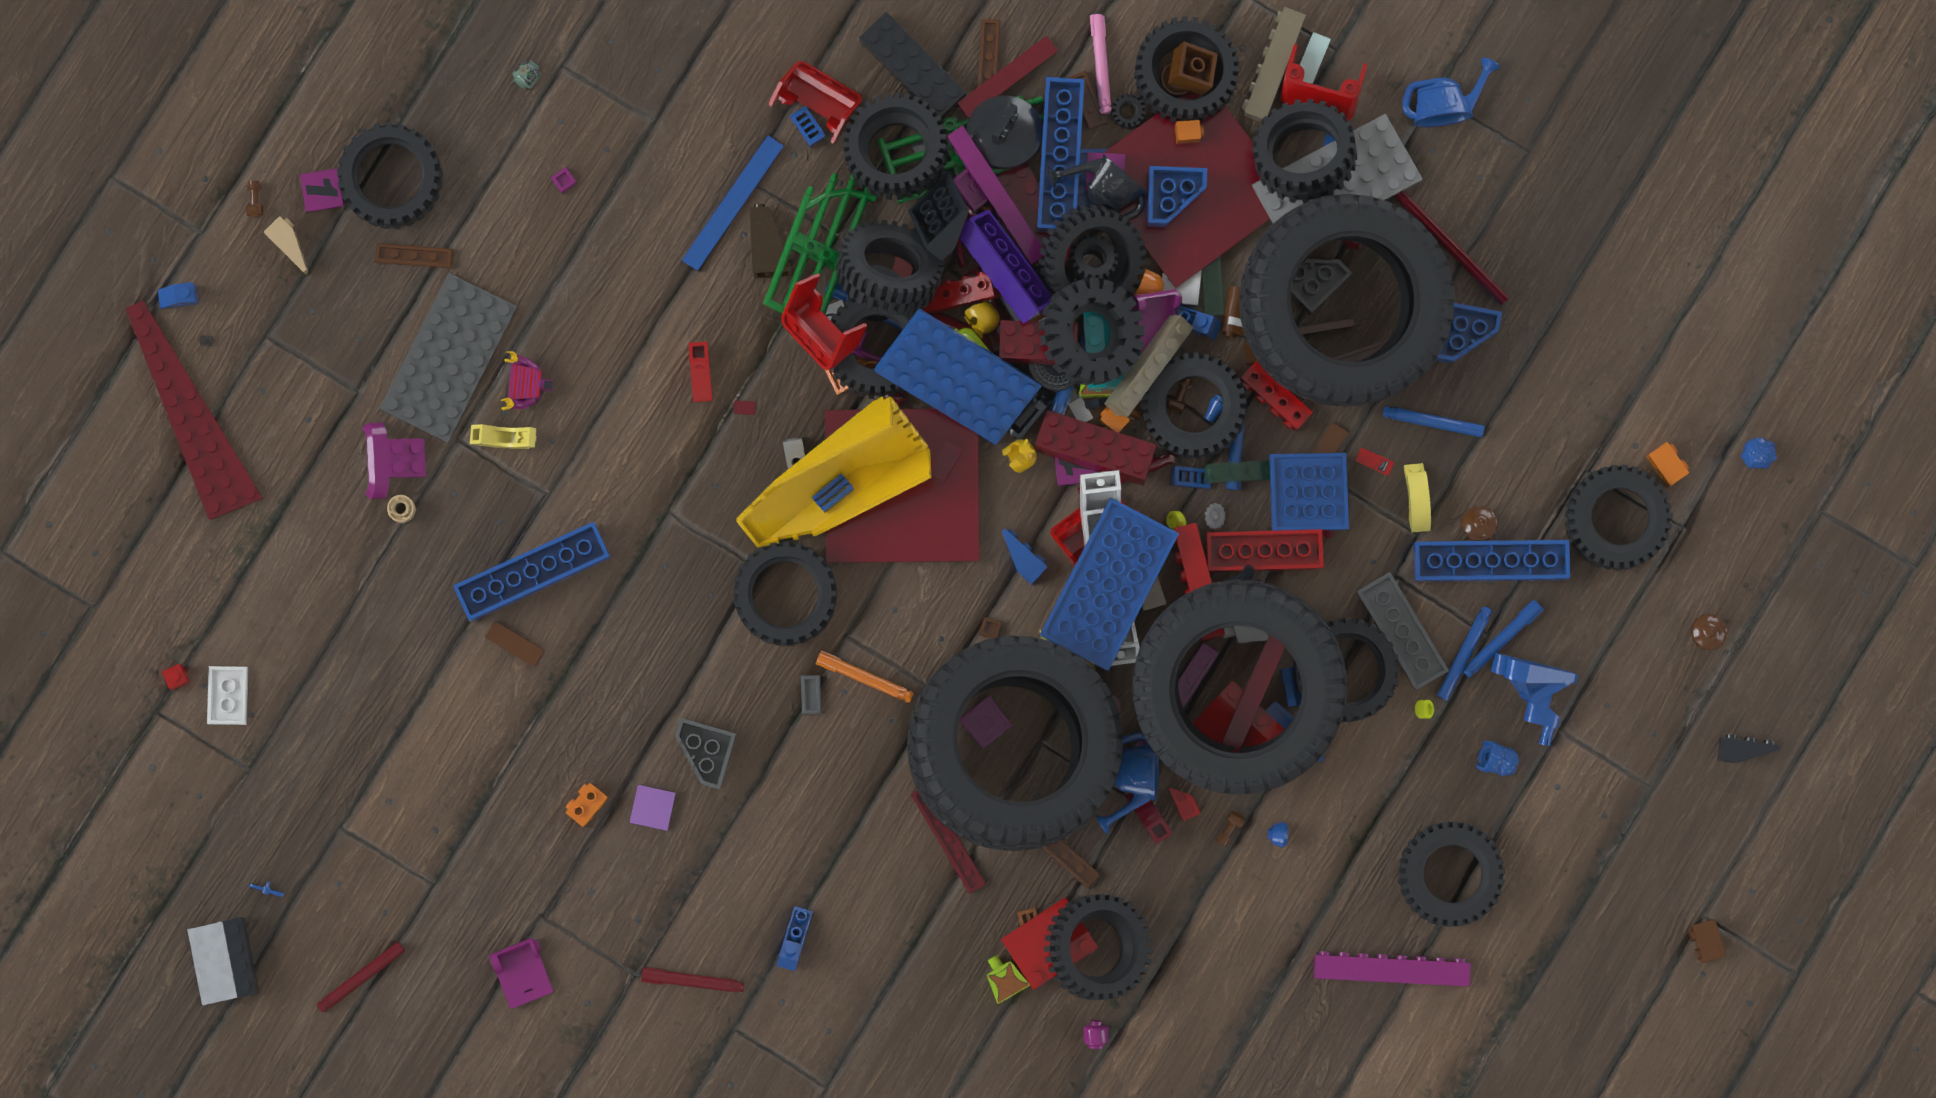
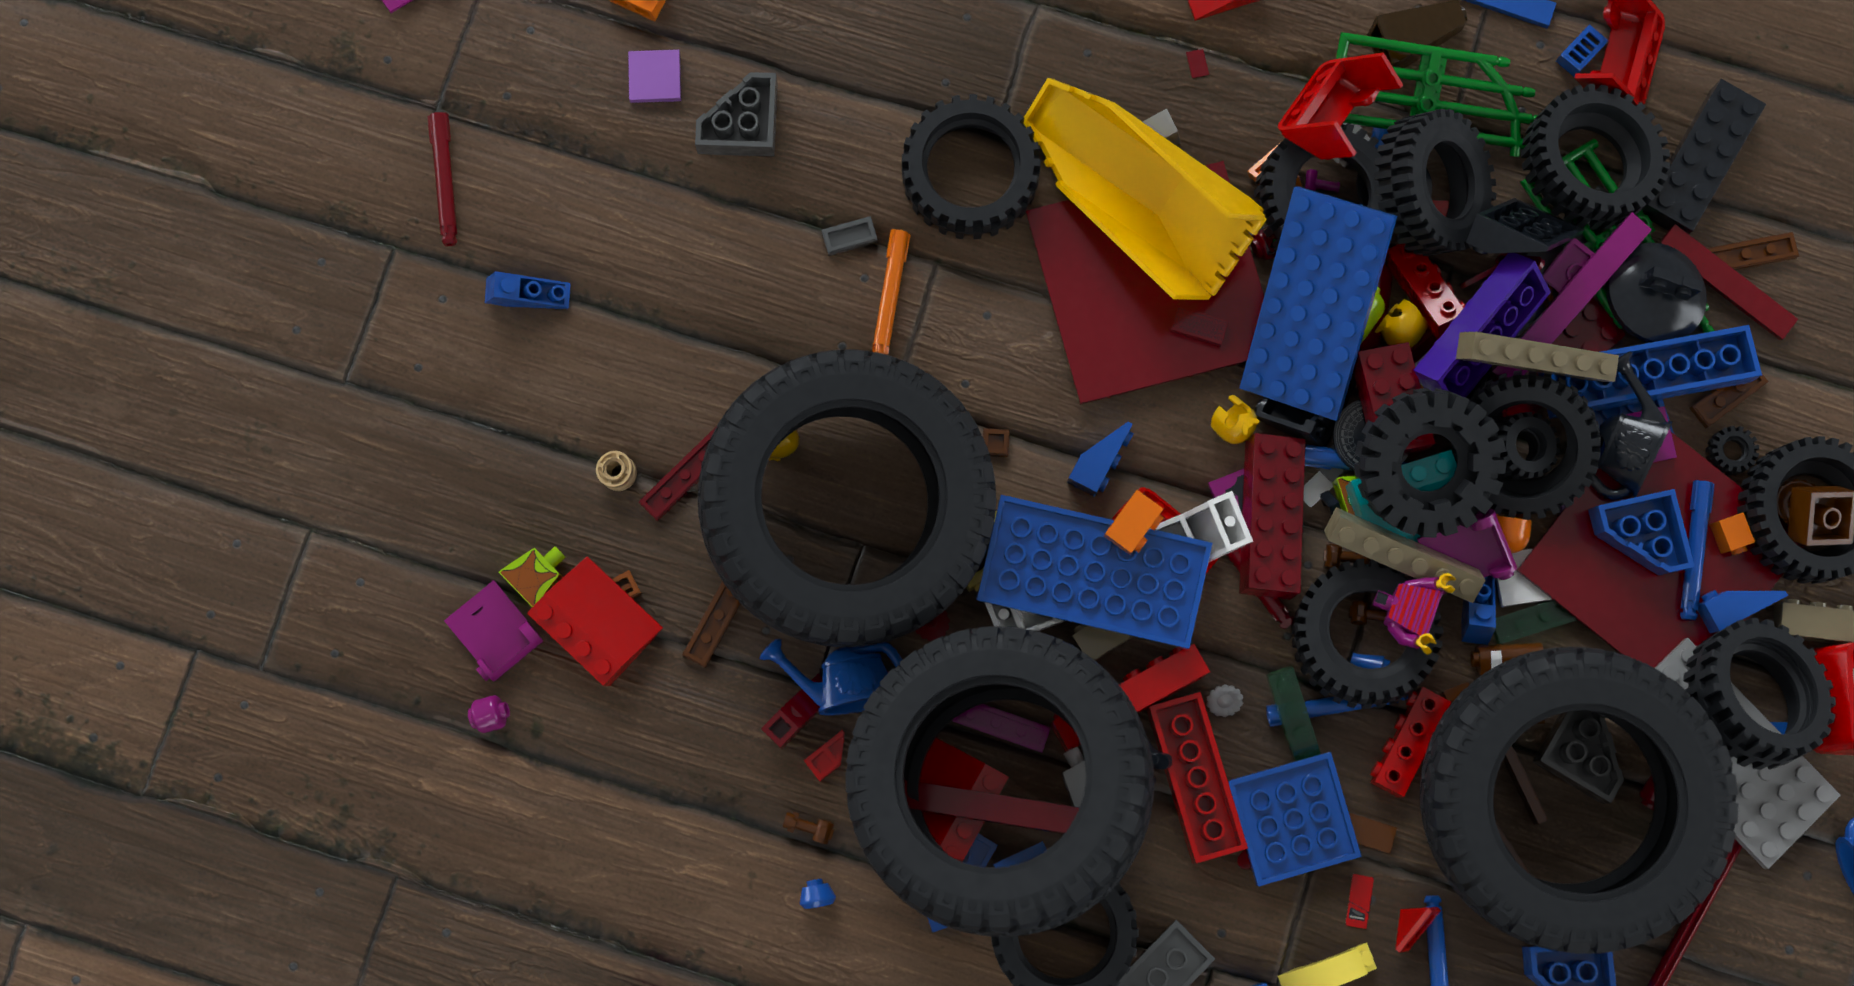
camera: 80 degrees right, 5 degrees down
(830, 486) = (1120, 191): blue tile -> none
(937, 910) = (608, 463): none -> tan wheel
(985, 722) = (870, 467): magenta tile -> none
(1037, 236) = (1537, 356): none -> dark tan brick
(1040, 1017) = (493, 631): none -> magenta door
(1084, 548) = (1134, 522): none -> orange brick
(1098, 33) = (1822, 387): bright pink piece -> none
(1113, 422) = (1313, 534): orange brick -> none
(1132, 941) = (602, 735): black tyre -> none
(1164, 147) = (1701, 507): none -> blue piece
(1174, 477) = (1256, 646): blue slope -> none
(1175, 519) = (1207, 648): neon yellow tile -> none
(1189, 371) = (1413, 609): none -> torso
(1239, 150) = (1727, 607): none -> blue slope
(1400, 431) = (1412, 925): none -> red slope

